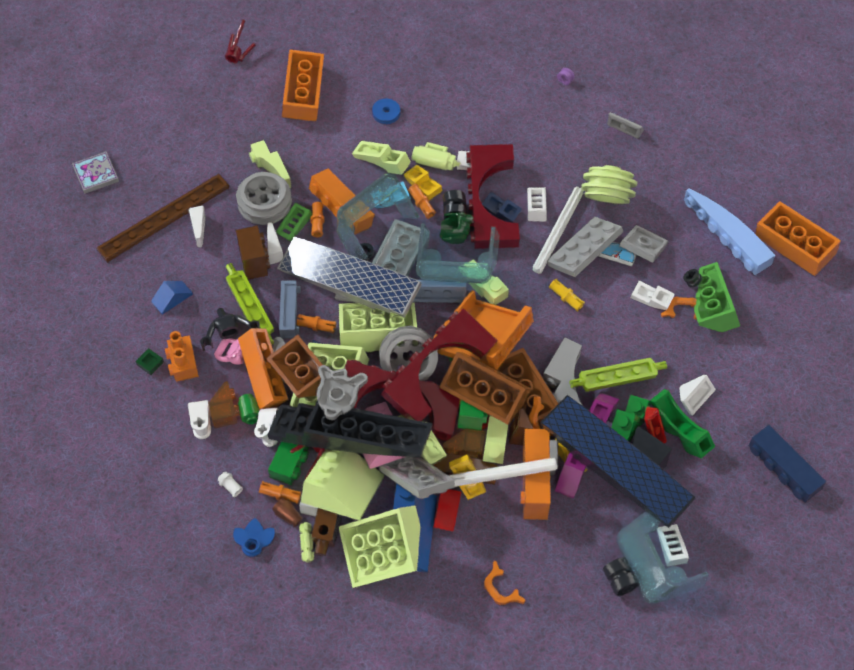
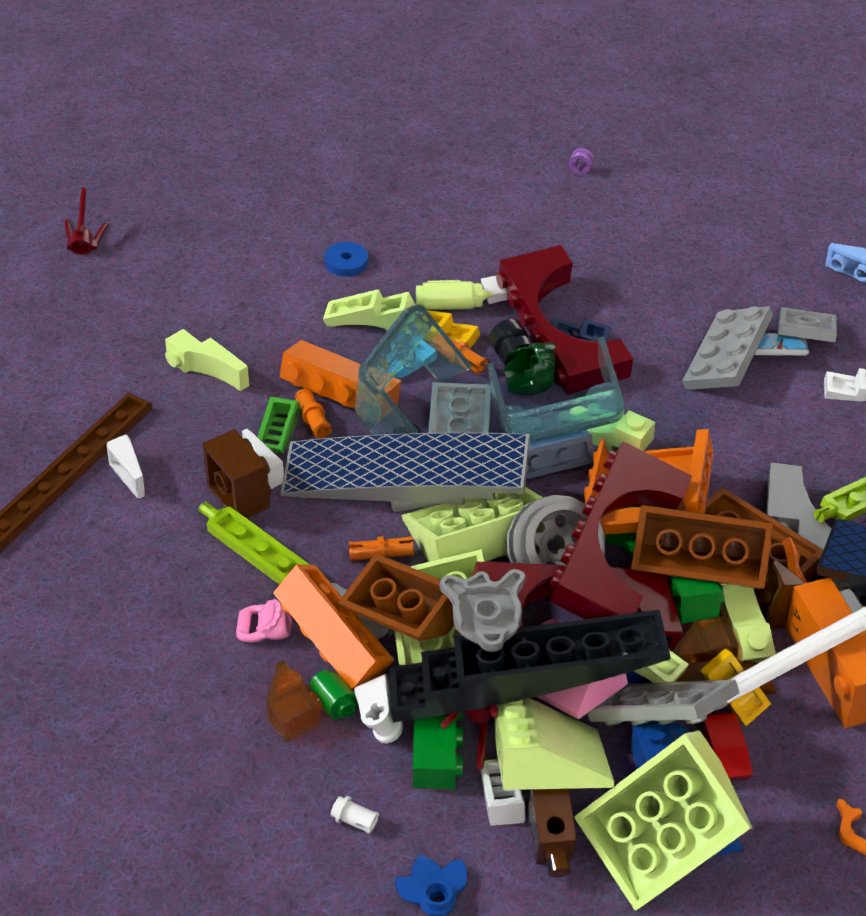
camera: 20 degrees left, 15 degrees down
(149, 361) = (133, 673): dark green plate -> none
(170, 295) = (124, 573): blue slope -> none
(182, 357) = (186, 650): orange brick -> none
(200, 416) = (258, 732): white piece -> none
(226, 327) = (240, 589): black piece -> none
(264, 205) = (219, 399): light grey wheel -> none
(279, 492) = (444, 802): orange pin -> none
(287, 512) = (471, 827): copper cone -> none
(288, 309) = (329, 540): sand blue container -> none
(302, 85) = (208, 252): orange brick -> none
(306, 542) = (525, 864): yellowish green axle -> none
(537, 214) = (630, 321): white slope -> none
(557, 231) = (675, 342): white axle -> none
(566, 295) = (736, 415): yellow pin -> none
(609, 184) = (724, 261): yellowish green wheel -> none
(624, 125) = (695, 197): light grey slope -> none

